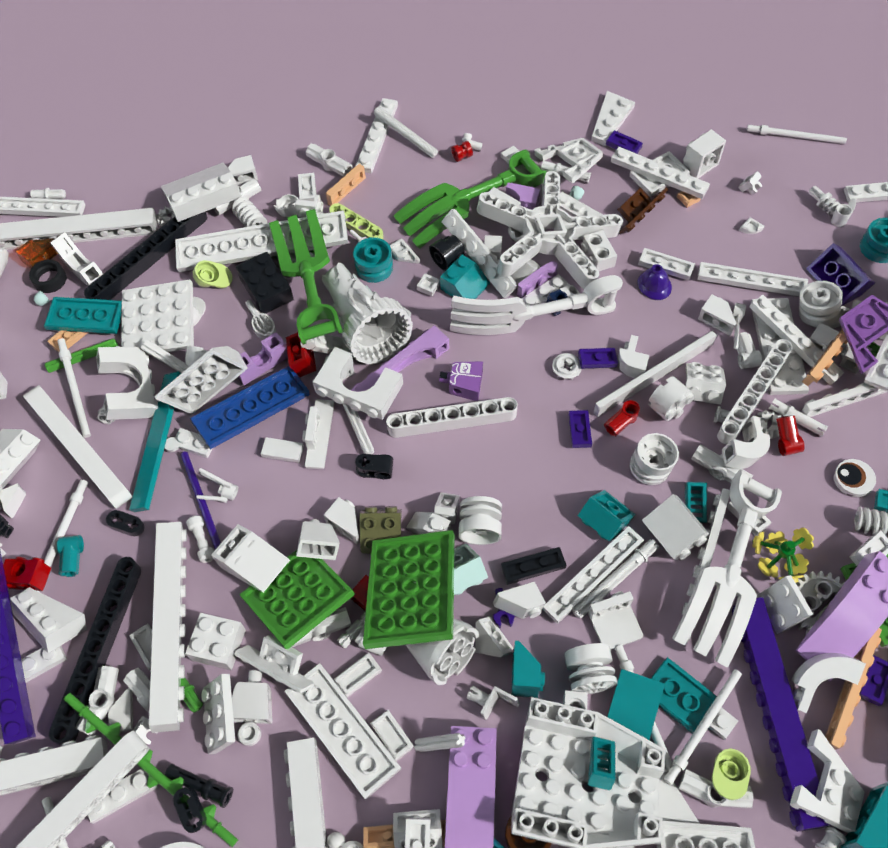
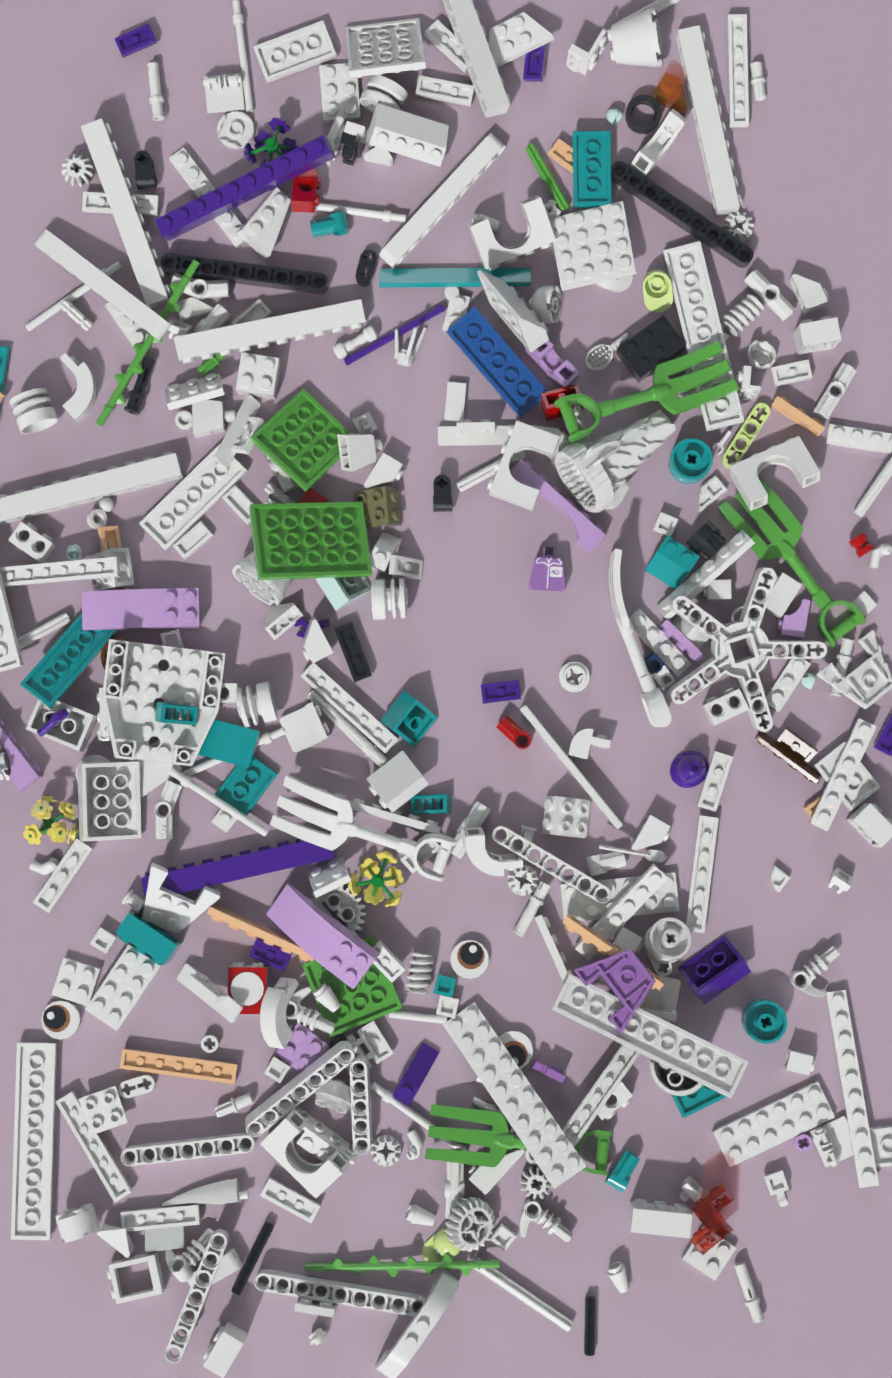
camera: 90 degrees right, 25 degrees up
(65, 357) = (539, 163): white bar -> none
(164, 356) = (547, 264): white axle -> none
(184, 811) = (117, 383): black beam -> none
(201, 191) = (765, 254): white slope -> none
(249, 558) = (334, 392): white slope -> none
(278, 163) = (817, 335): none -> white brick
(289, 536) = (365, 424): none -> white tile
(379, 188) = (790, 454): none -> white arch
(439, 742) = (183, 580): white axle -> none
(444, 423) = (502, 554): white beam -> none
(489, 700) = (226, 619): white bracket -> none
(508, 768) = (172, 639): none -> white plate
(526, 673) = (249, 648): teal slope -> none
(598, 358) = (584, 707): dark purple plate -> none
(654, 459) = (467, 773): white wheel -> none
(670, 399) = (535, 780): white brick -> none
(731, 774) = (179, 822): yellowish green cap -> none
(790, 441) = (503, 897): red piece -> none
(821, 668) = (271, 904): white arch -> none

